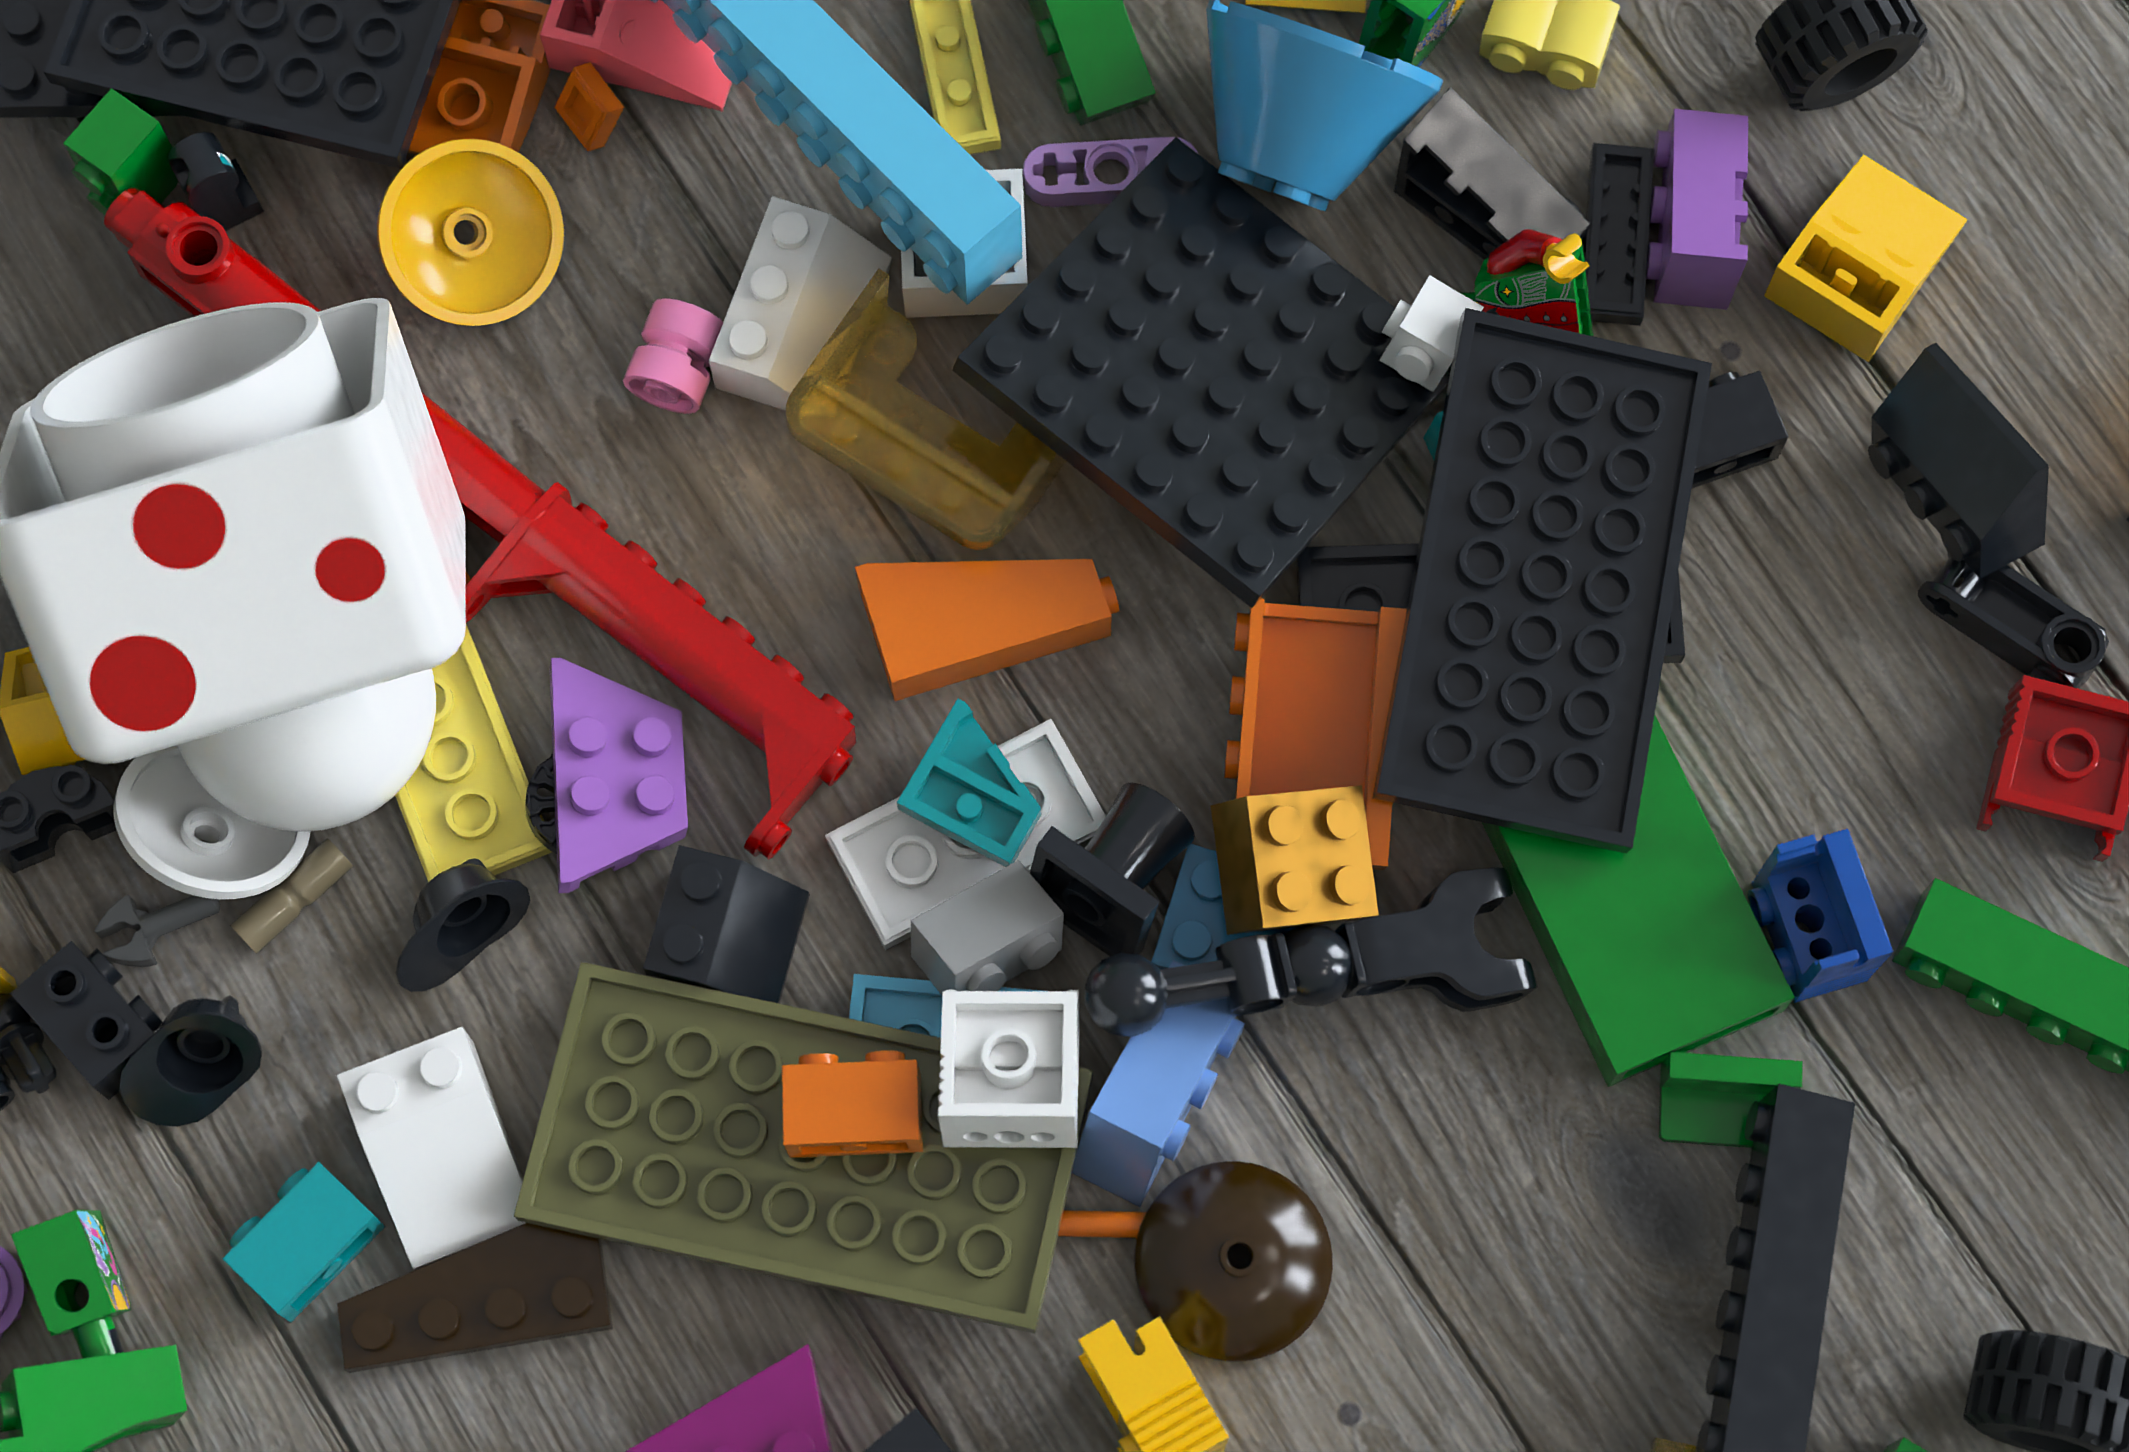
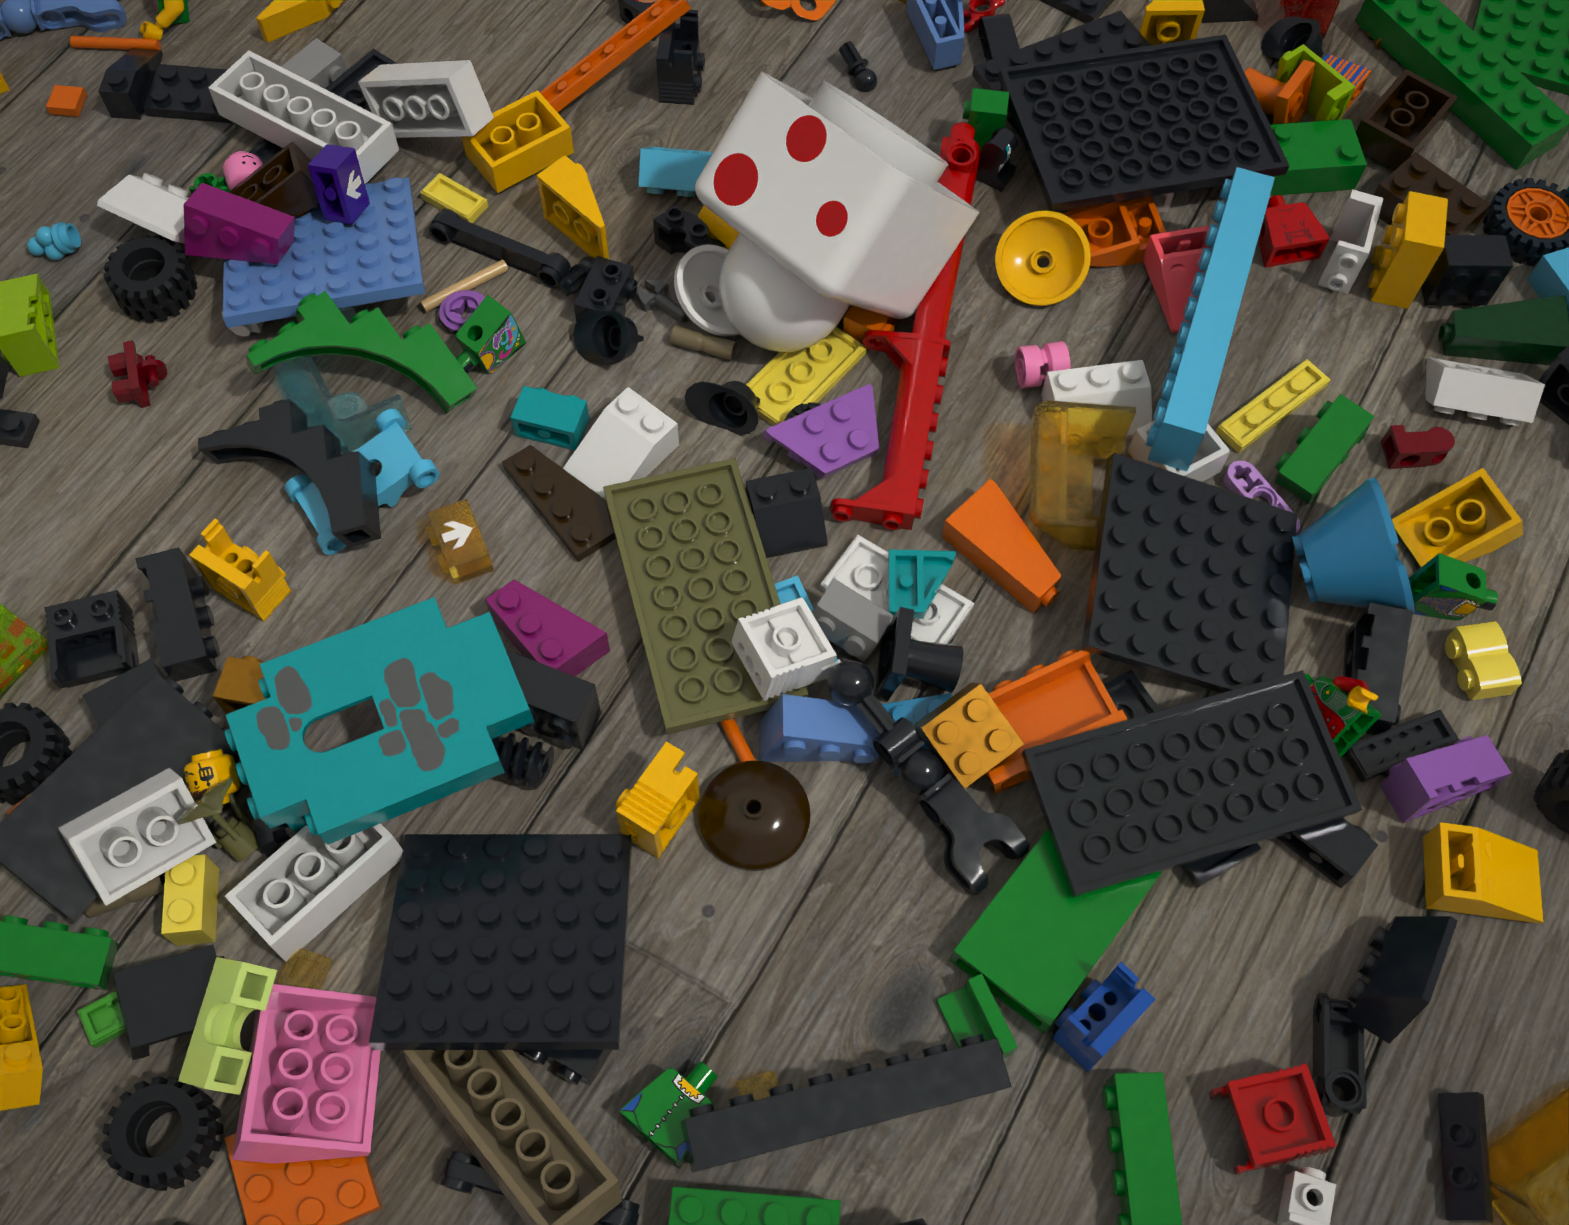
camera: 60 degrees right, 10 degrees down
(589, 107) = (1134, 278): orange tile -> none
(852, 1105) = (726, 590): orange brick -> none
(1426, 333) = (1279, 661): white brick -> none

